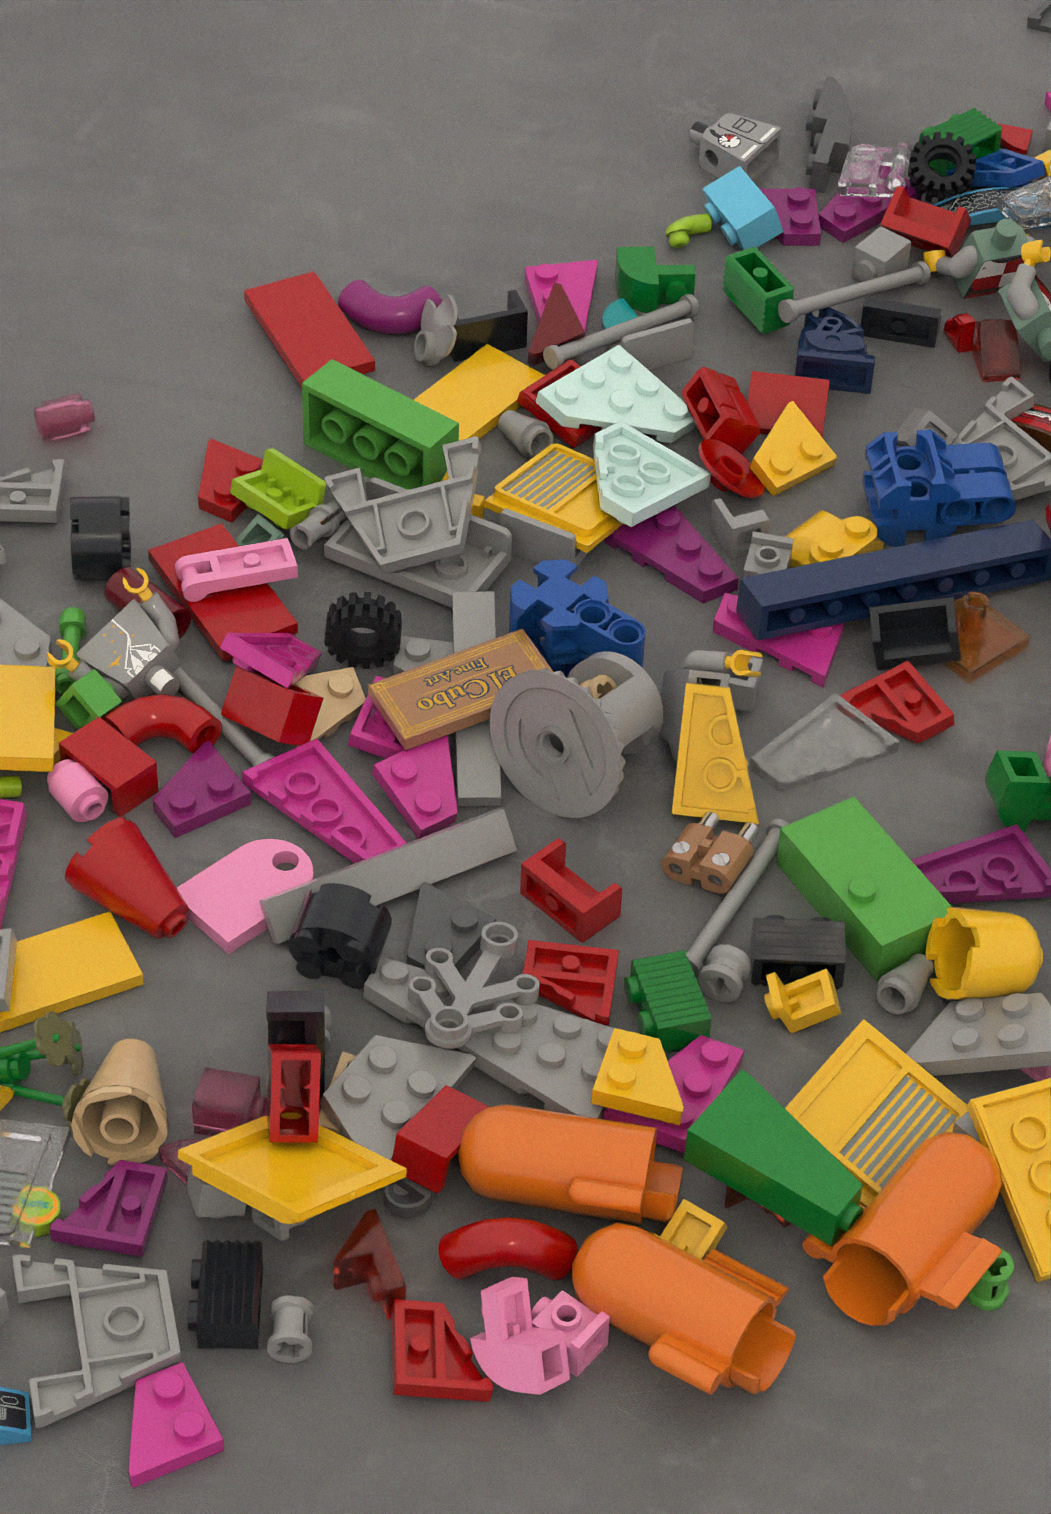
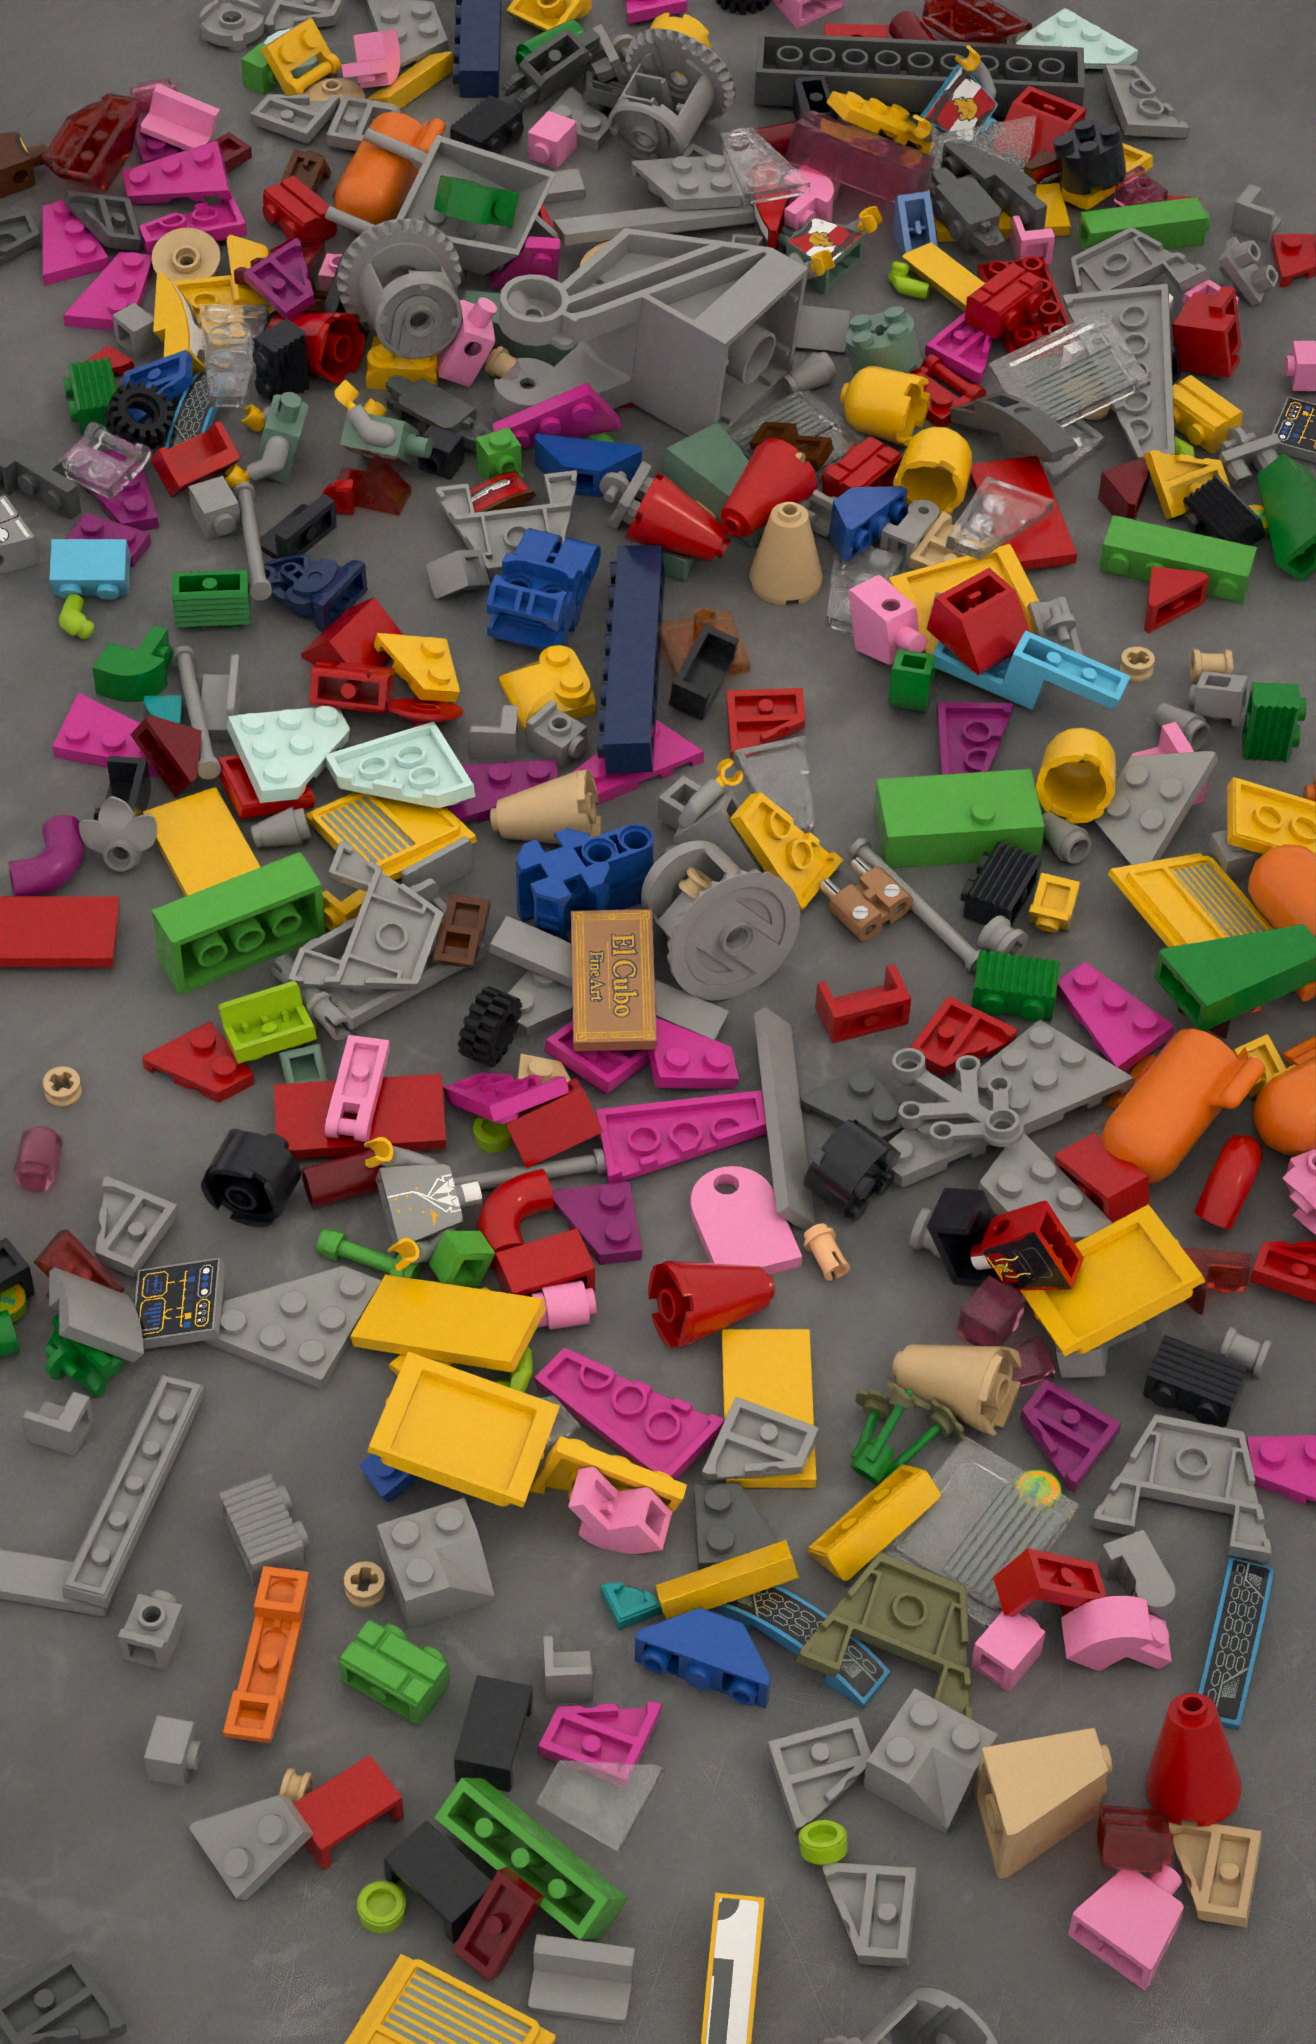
camera: 65 degrees left, 5 degrees up
(152, 399) = (61, 1076): none -> tan bush
(245, 958) = (821, 1242): none -> light nougat pin
(474, 575) = (462, 931): none -> reddish brown slope
(637, 1078) = (1103, 1030): yellow wing -> none
(663, 595) = (549, 809): none -> tan cone

